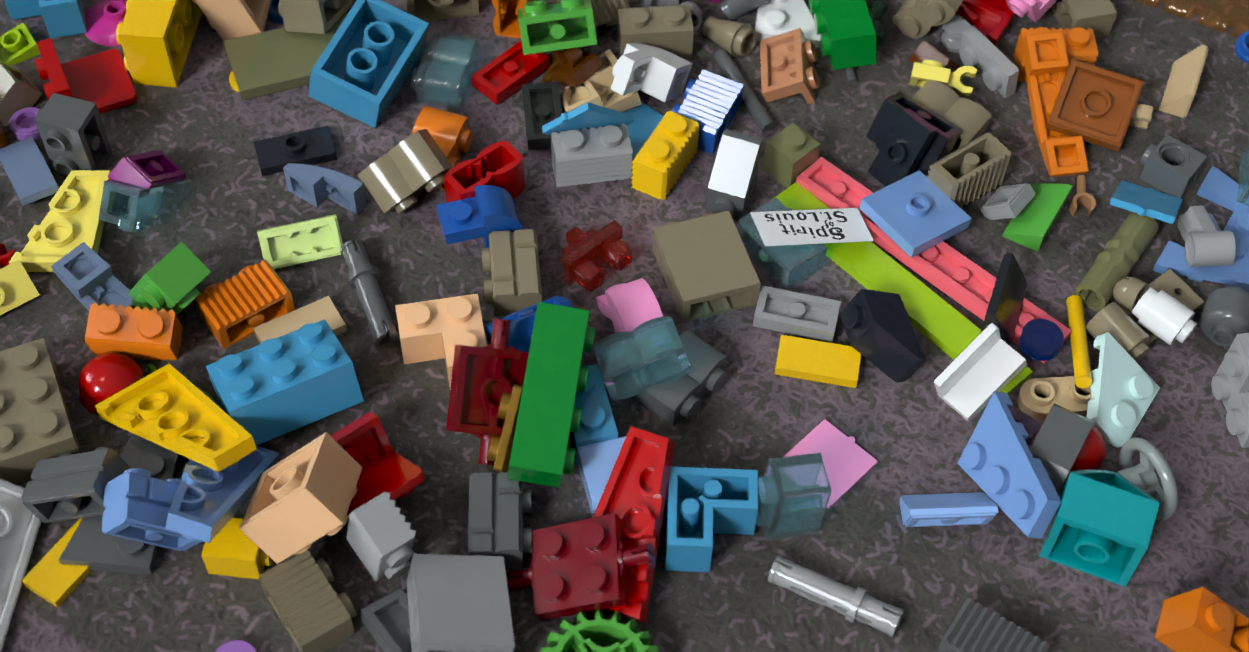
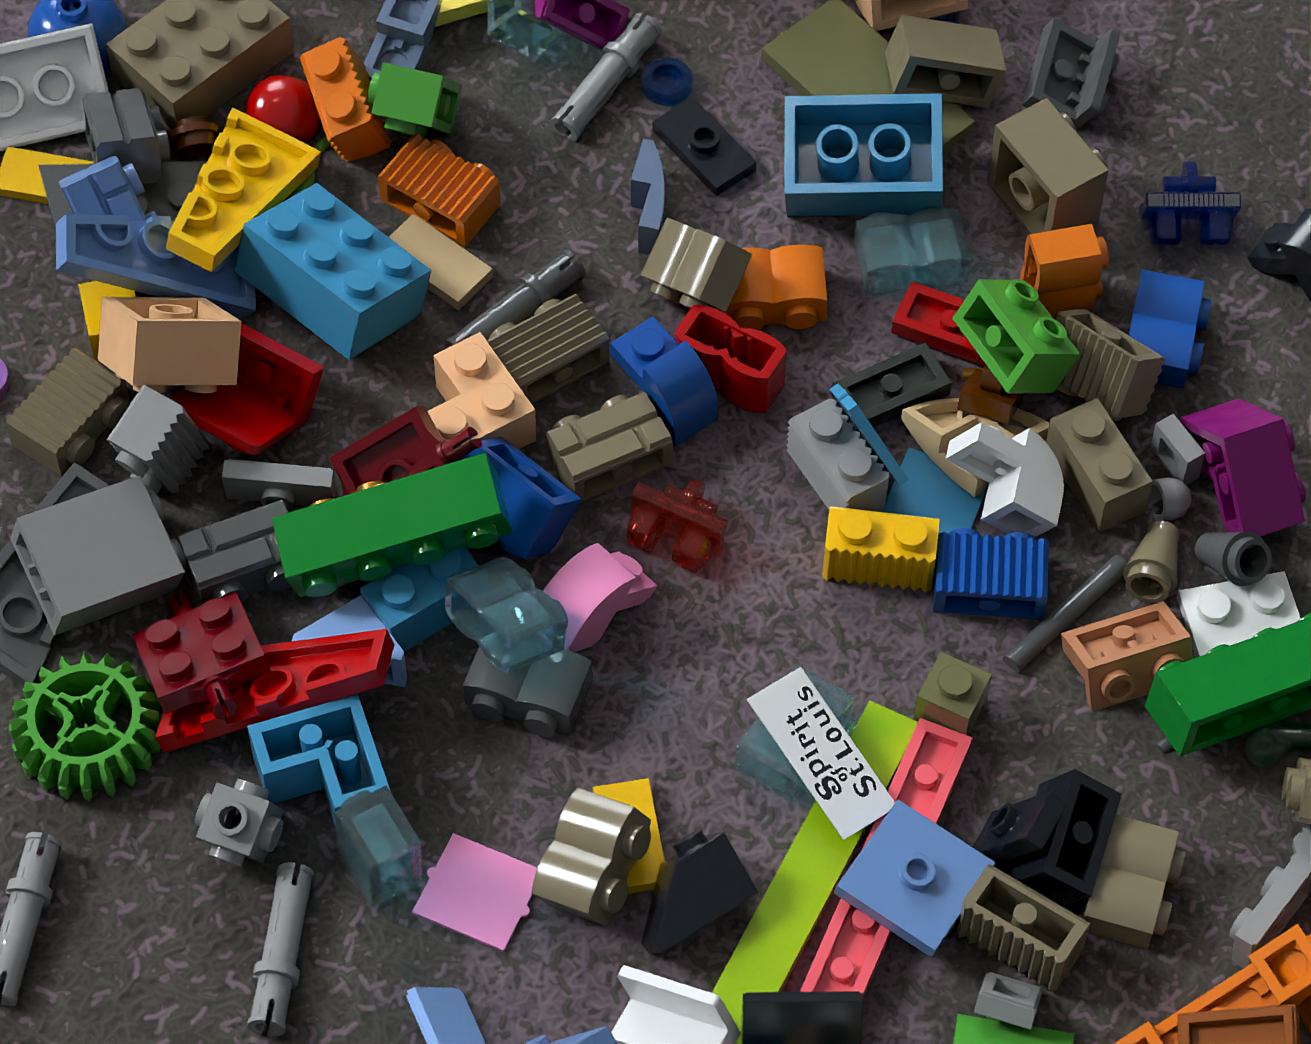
camera: 70 degrees right, 5 degrees up
(99, 438) = (193, 136): none -> reddish brown plate
(198, 171) = (618, 62): none -> light grey pin
(229, 153) = (667, 81): none -> clear blue tile
(301, 241) = (556, 207): yellowish green plate -> none
(414, 272) = (551, 347): none -> dark tan brick
(448, 478) = (277, 482): none -> light grey plate
(705, 266) = (716, 653): dark tan brick -> none
(732, 585) = (258, 828): none -> light grey brick
(734, 174) = (866, 637): slope -> none
(796, 313) = (690, 783): light grey plate -> none
(839, 376) = (592, 856): none -> dark tan brick
(929, 52) = (1251, 840): slope -> none
(934, 71) = (1202, 843): light yellow plate -> none

